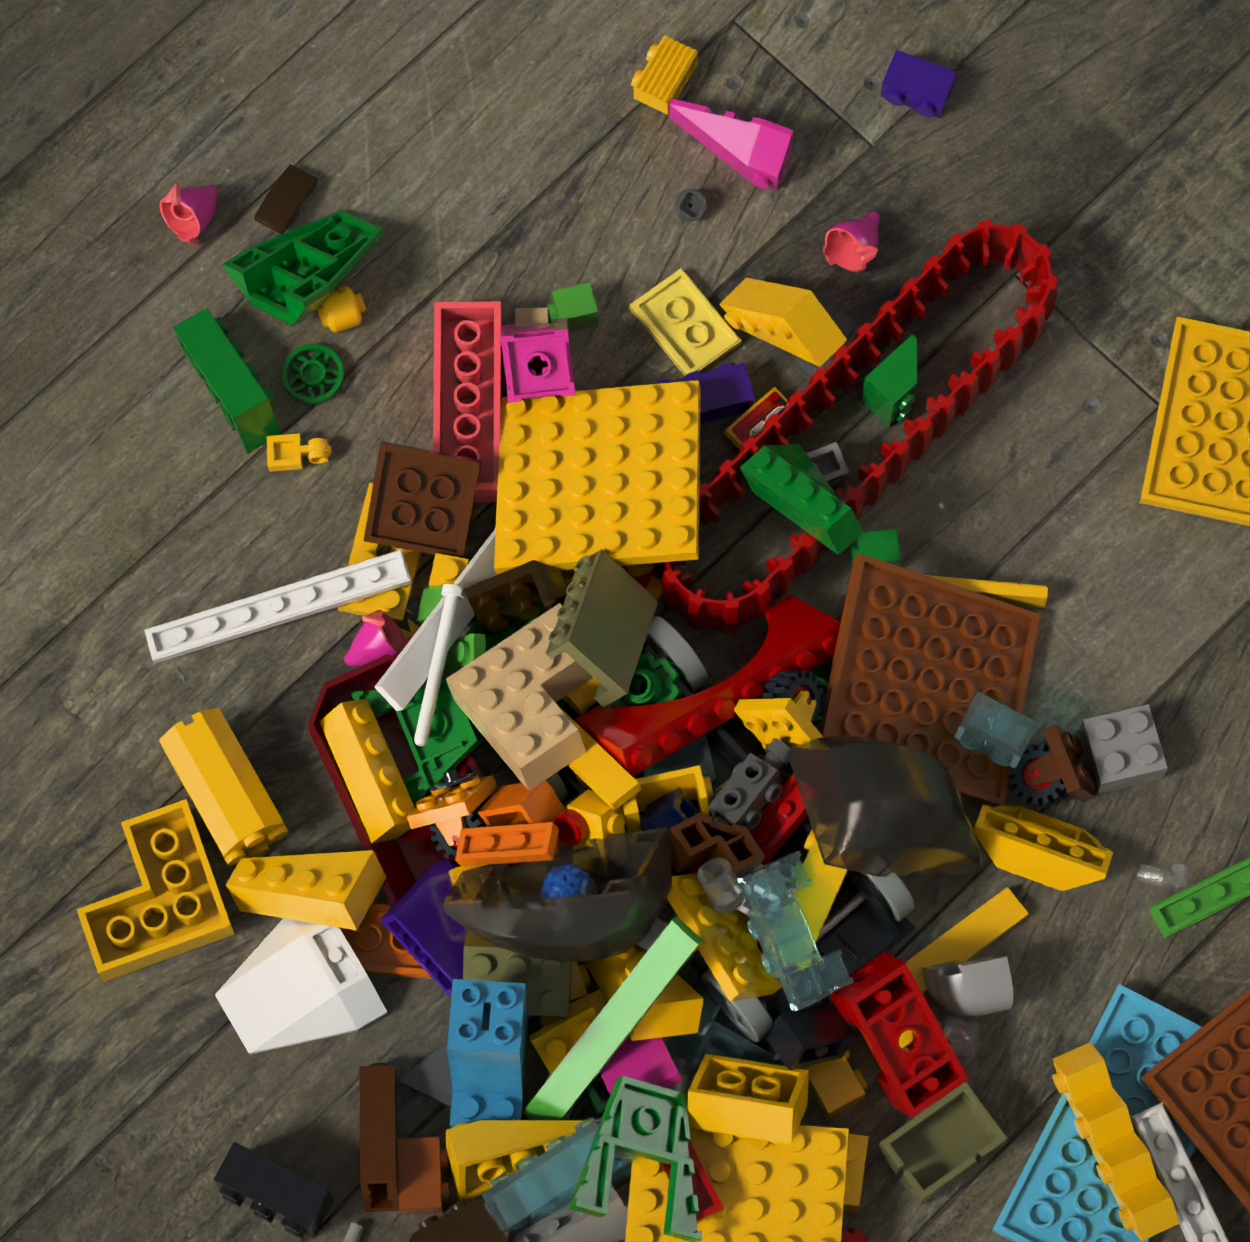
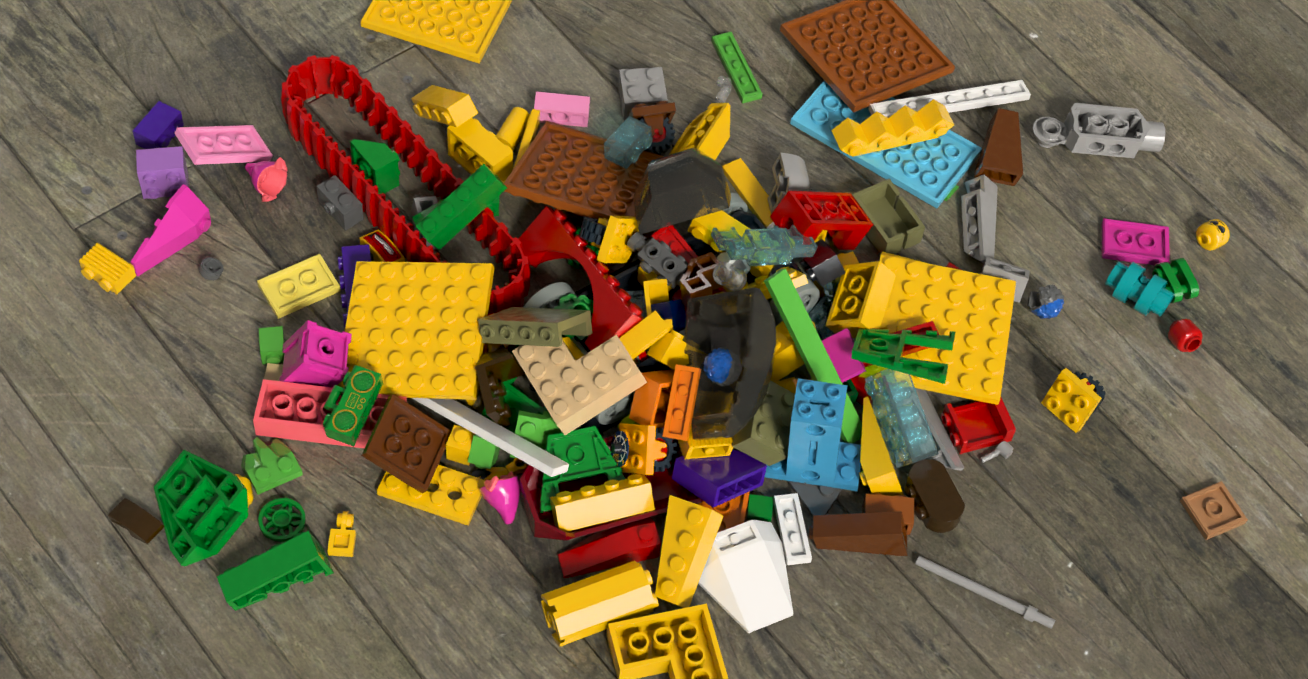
camera: 90 degrees left, 15 degrees down
(189, 210) = (130, 586): hat -> none
(273, 1191) = (898, 600): black brick -> none
(278, 606) = (463, 560): white tile -> none
(316, 796) = (612, 548): none -> red wedge
(380, 1042) = (792, 529): none -> white plate
(389, 342) = (270, 465): none -> bright green plate
(411, 996) = (760, 508): none -> green tile
(452, 596) = (536, 441): white bar -> none
(461, 420) = (355, 405): none -> green piece
(572, 827) = (671, 360): red tile -> none
(785, 318) = (319, 211): yellow wedge -> none
(829, 105) = (161, 171): none -> medium lavender brick
(891, 172) = (223, 144): none -> bright pink tile
(949, 523) = (474, 146): none -> yellow brick
(1010, 454) = (444, 106): none -> yellow brick
(1015, 566) = (513, 127): none -> yellow brick
(1067, 633) = (563, 108): none -> bright pink piece

